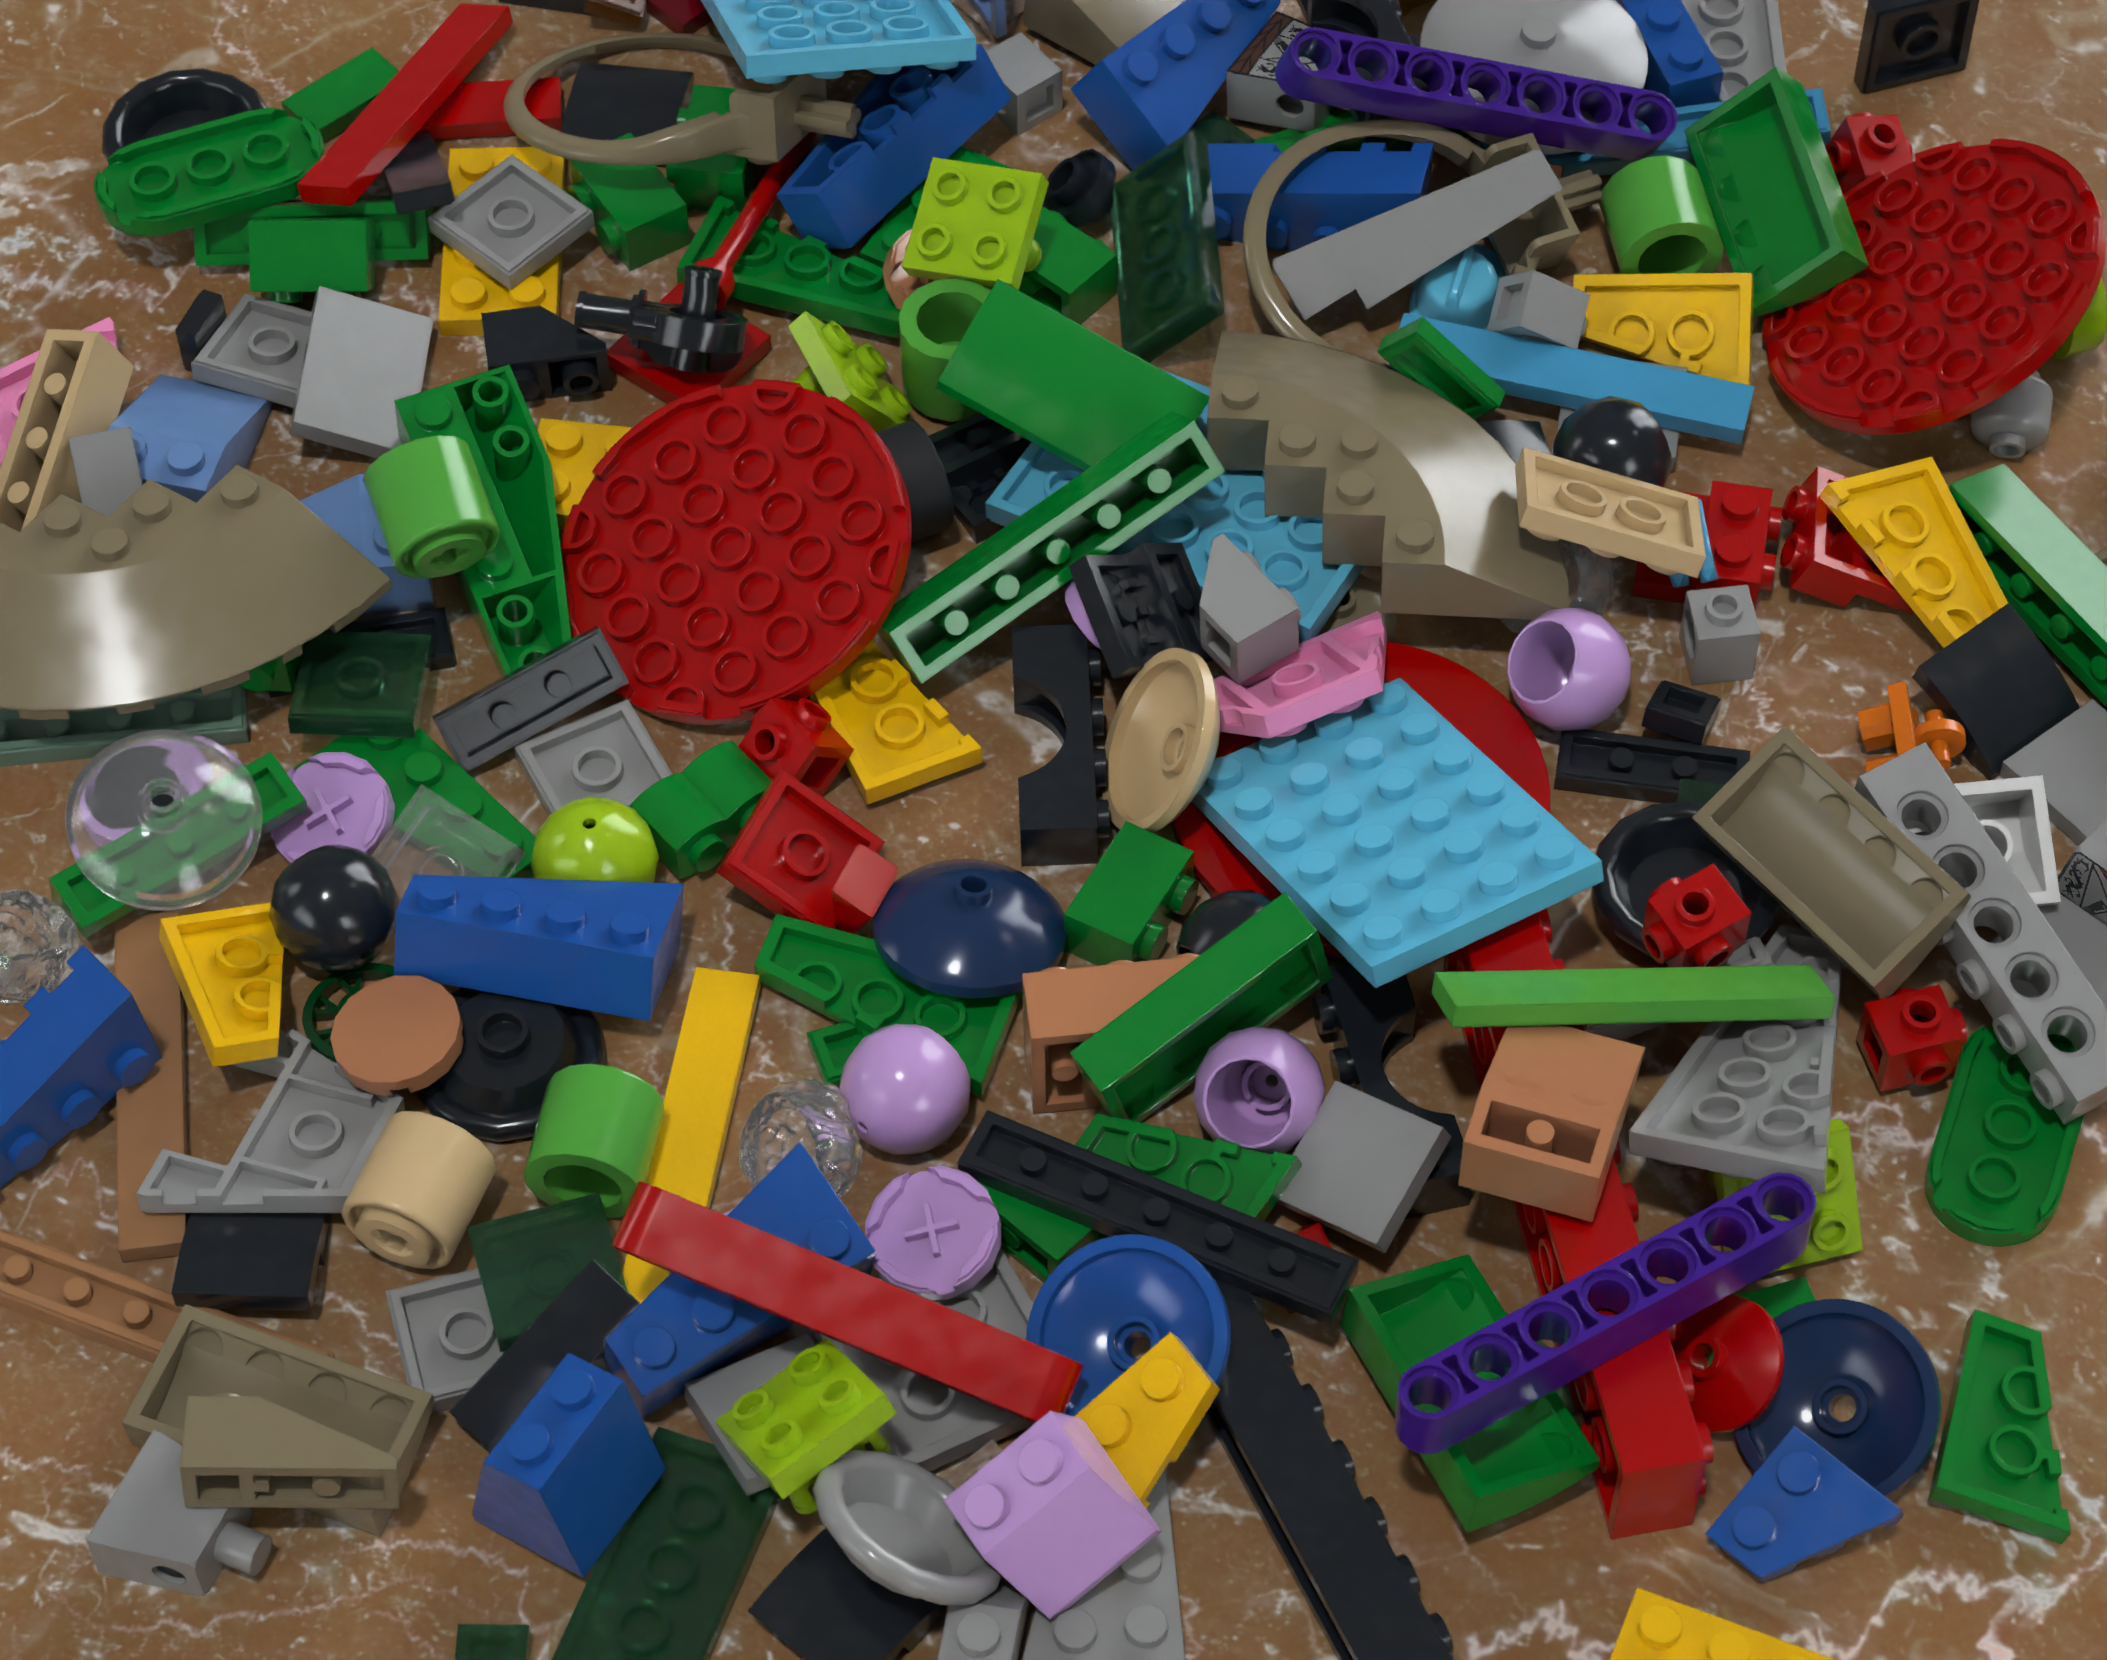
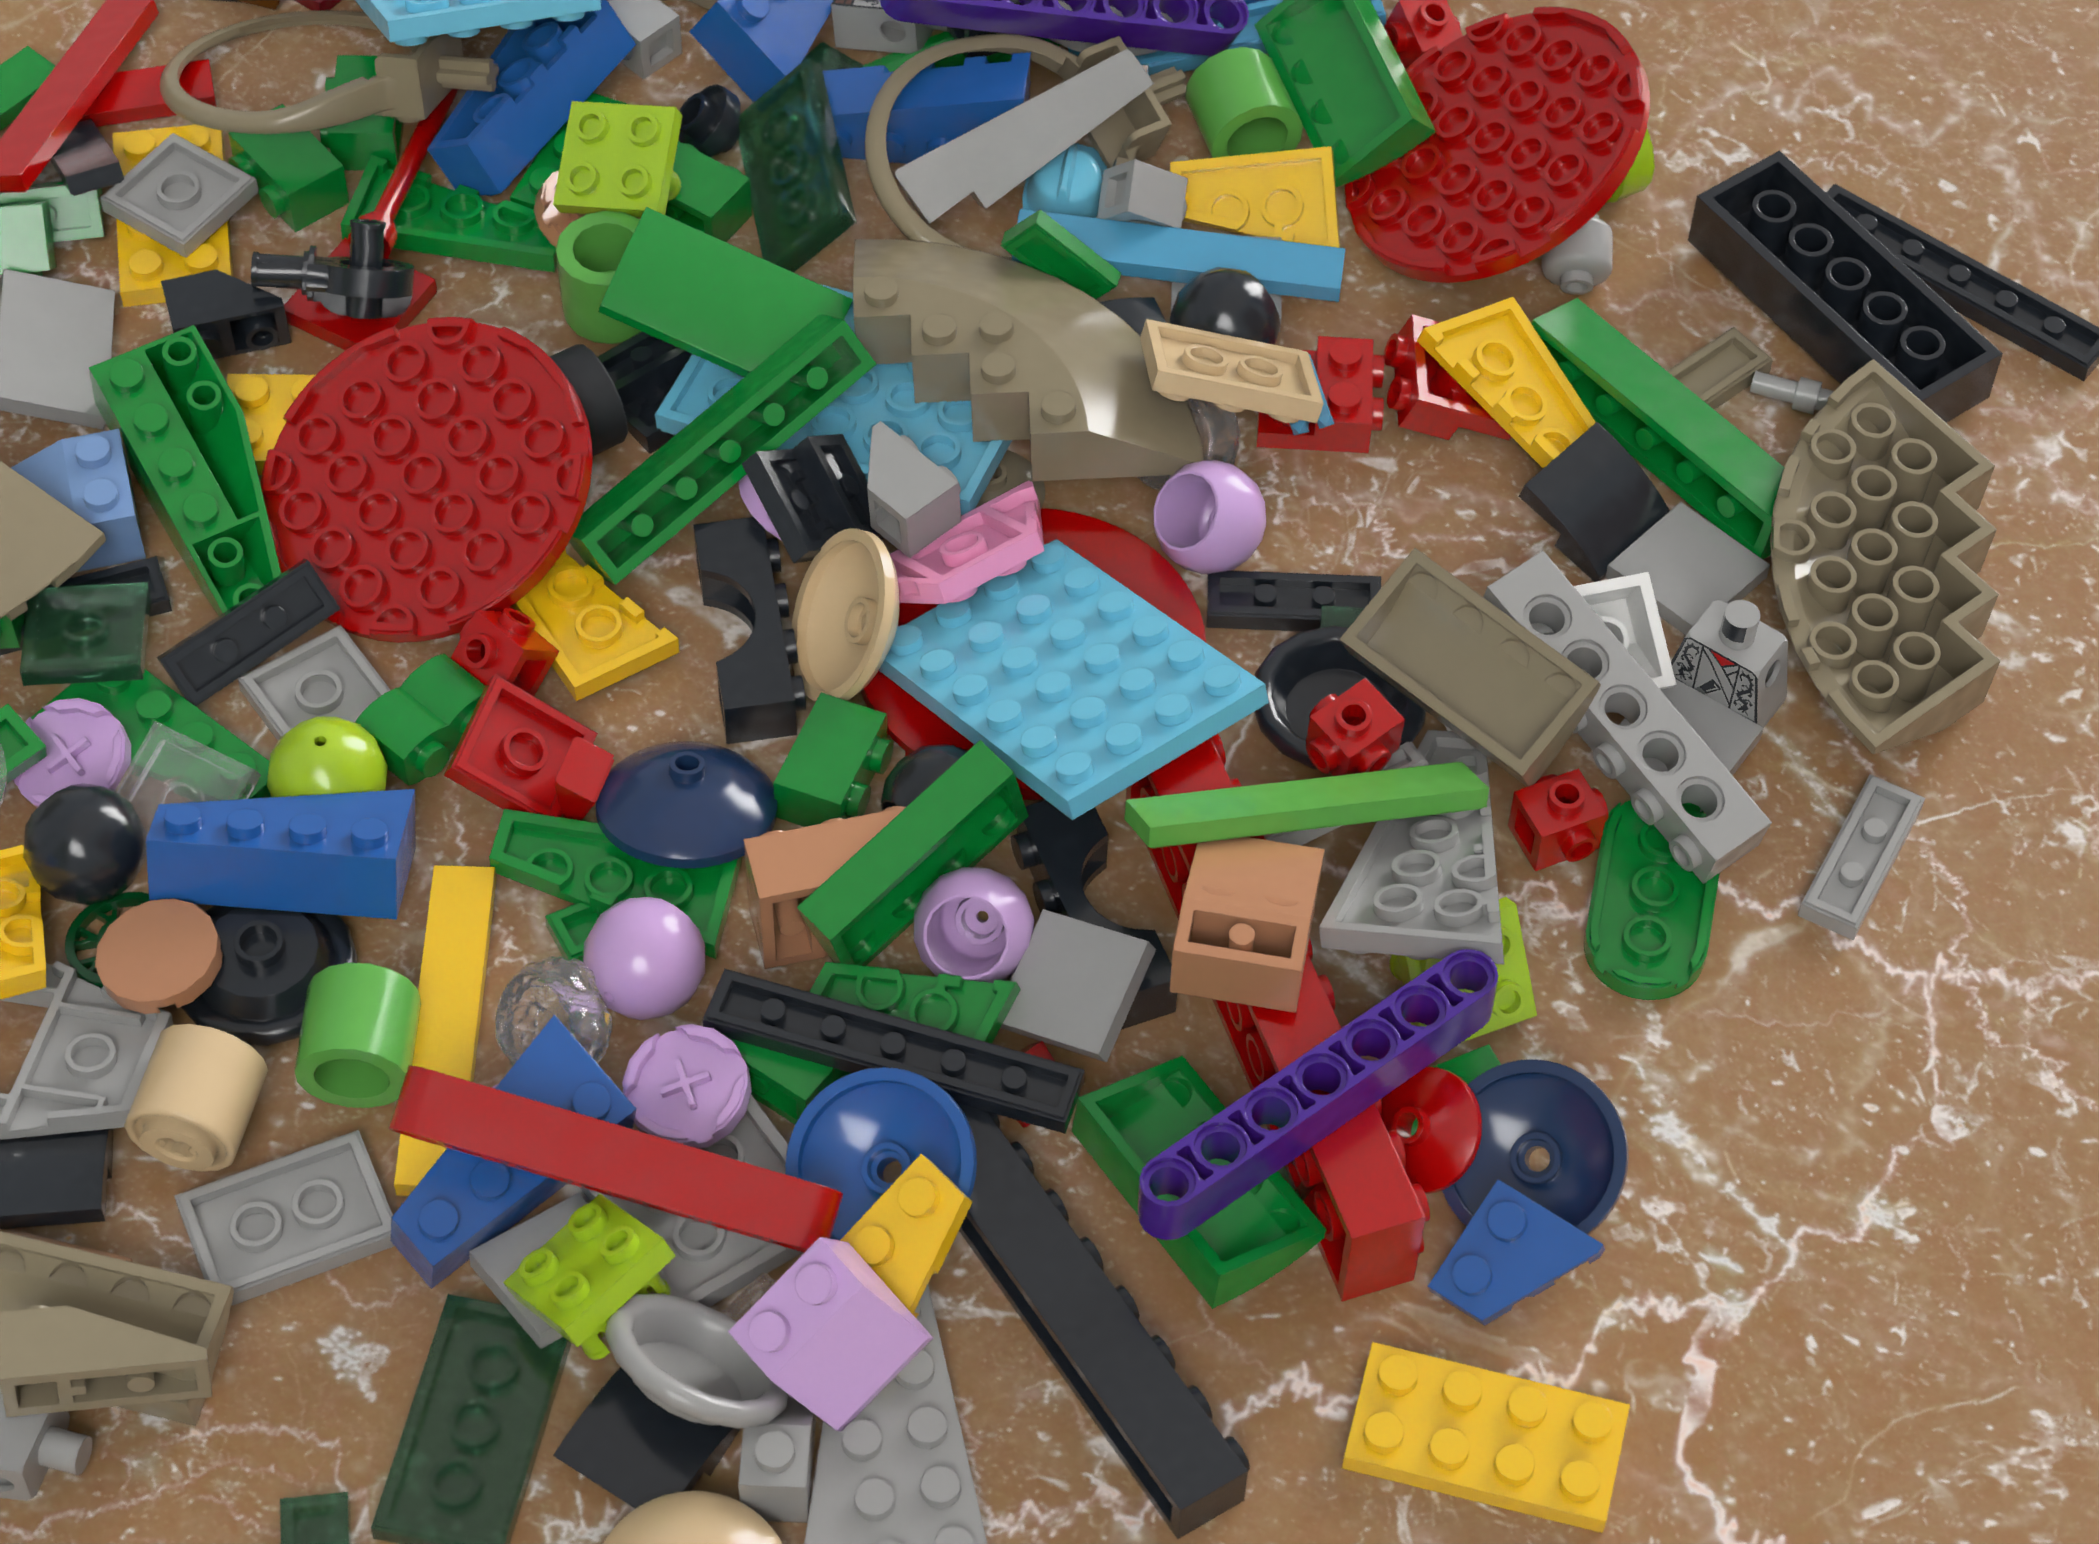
camera: 10 degrees left, 0 degrees up
(431, 507) = (136, 461): bright green piece -> none
(535, 1256) = (329, 1161): clear green tile -> none
(569, 1468) = (371, 1340): blue slope -> none
(571, 1323) = (334, 1242): black tile -> none
(624, 100) = (272, 75): black slope -> none
(848, 372) = (513, 304): lime plate -> none
(1681, 711) = (1314, 546): black tile -> none
(1719, 635) = (1340, 474): light grey brick -> none
(1900, 726) = (1510, 540): orange hips -> none
(1997, 1432) = (1678, 1168): green wing -> none

